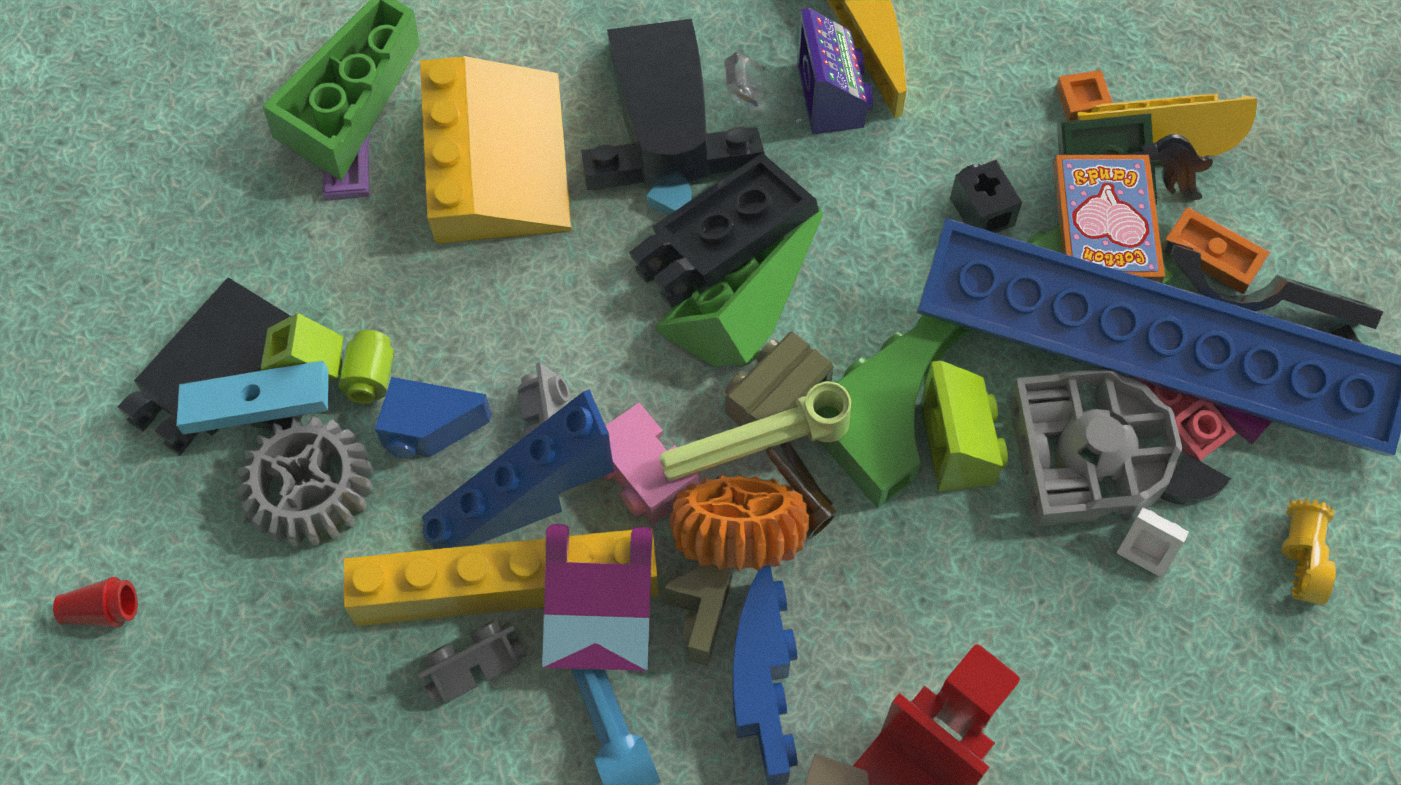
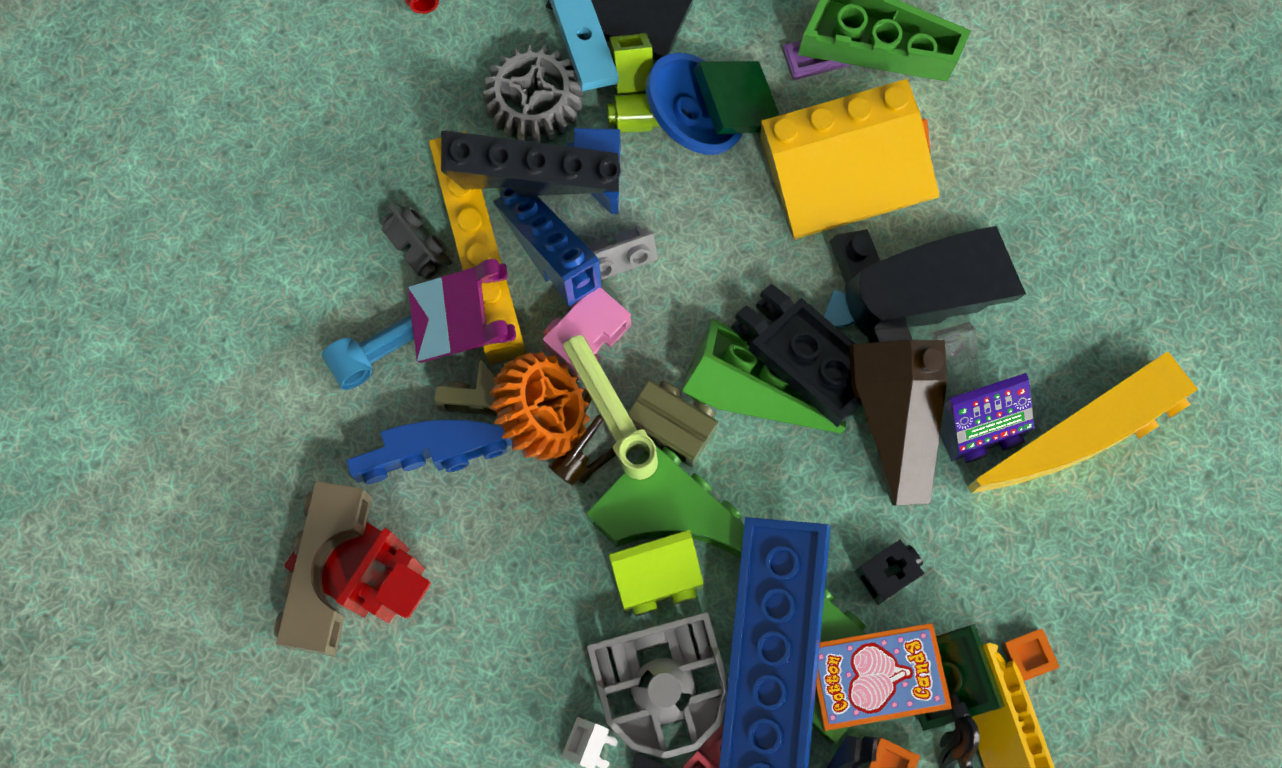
camera: 80 degrees right, 10 degrees up
(381, 247) = (735, 95): none -> dark green tile
(381, 291) = (680, 106): none -> blue dish
(425, 473) = (526, 166): none -> black slope
(793, 135) = (904, 404): none -> dark brown wedge

